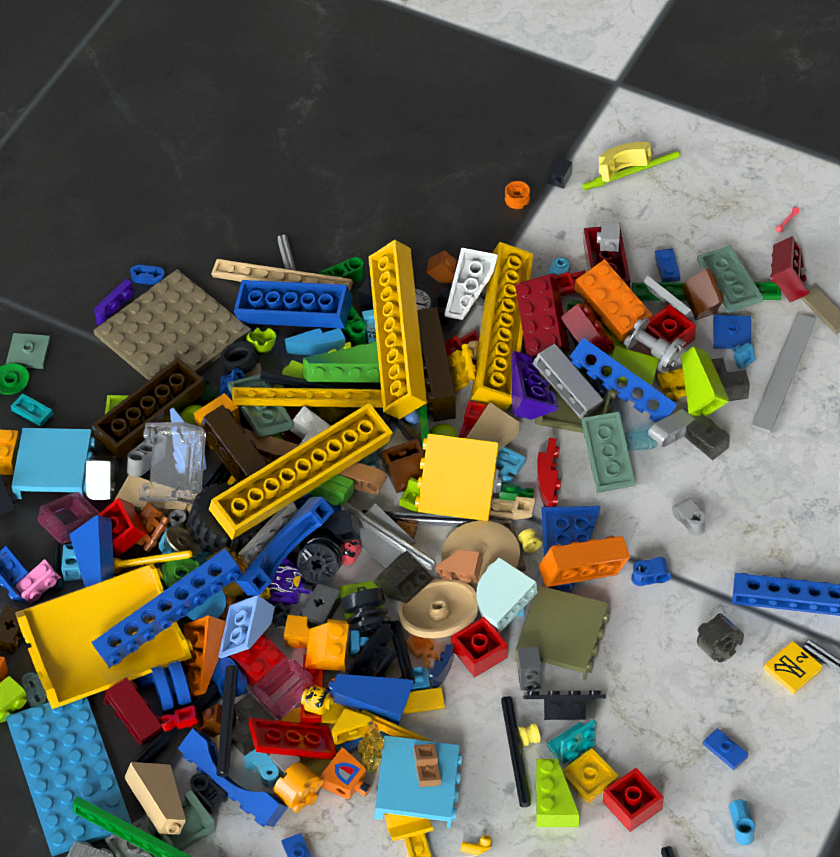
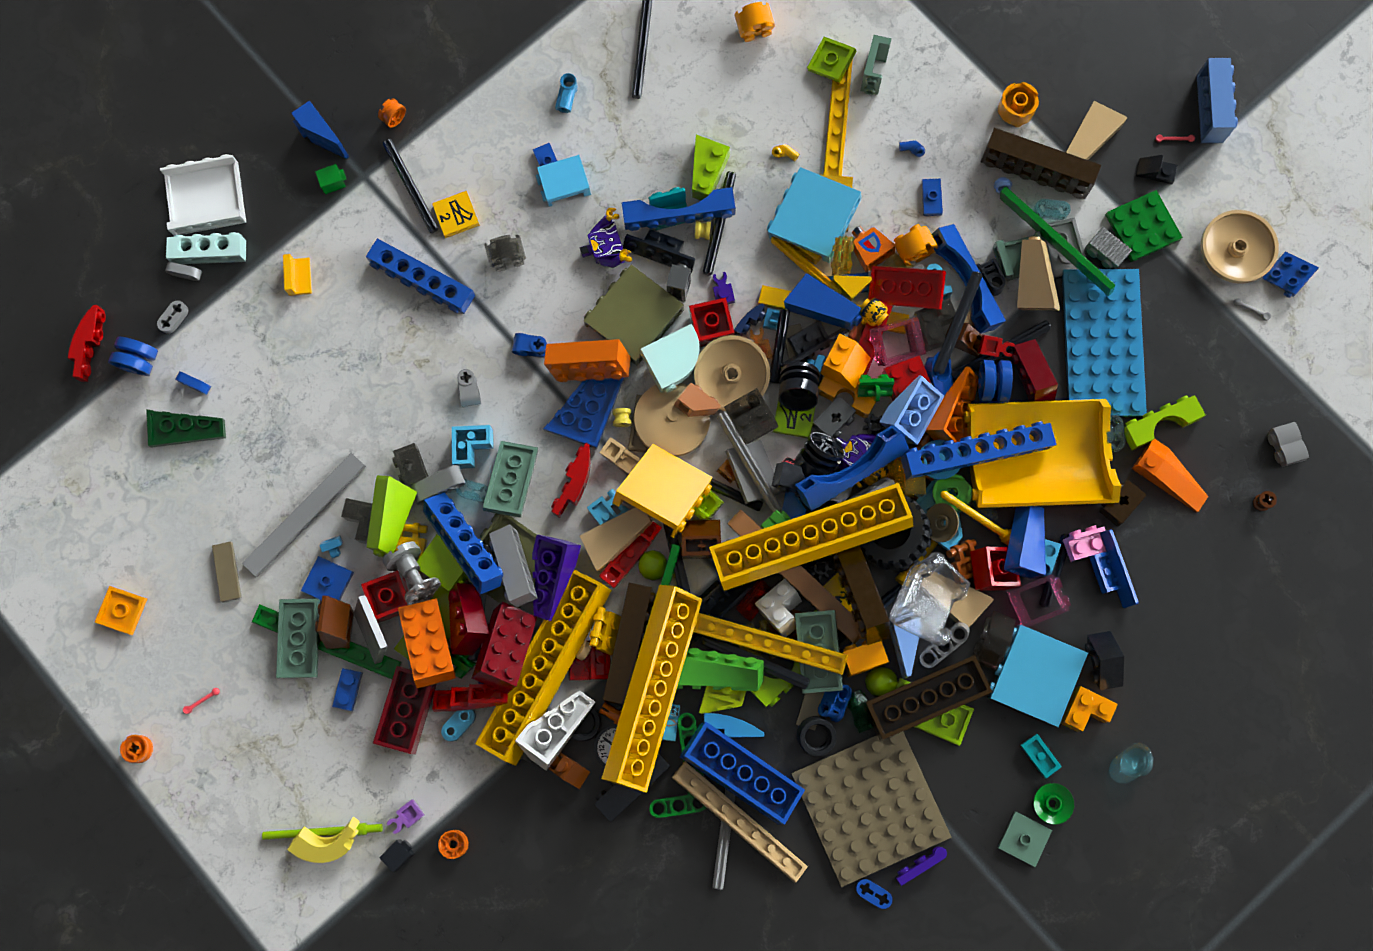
camera: 155 degrees left, 25 degrees up
(262, 341) = (785, 751): lime hair -> none
(282, 638) = (875, 387): none -> green hips
(426, 765) = (803, 215): medium nougat slope -> none
(482, 687) = (722, 289): none -> dark purple plate
(510, 491) = (614, 475): green plate -> none
(522, 755) = (640, 214): none -> blue arch
(566, 201) = (408, 815): none -> medium lavender plate
(589, 775) = (668, 176): yellow tile -> none
(609, 236) = (392, 722): light grey brick -> none
(621, 684) = (606, 243): none -> dark purple torso
(633, 799) = (645, 137): red brick -> none
(664, 468) = (466, 440): none -> medium azure brick
(697, 731) = (562, 179): none -> medium azure panel
(787, 269) = (235, 629): dark red wedge -> none
(818, 171) = (142, 754): none -> orange wheel

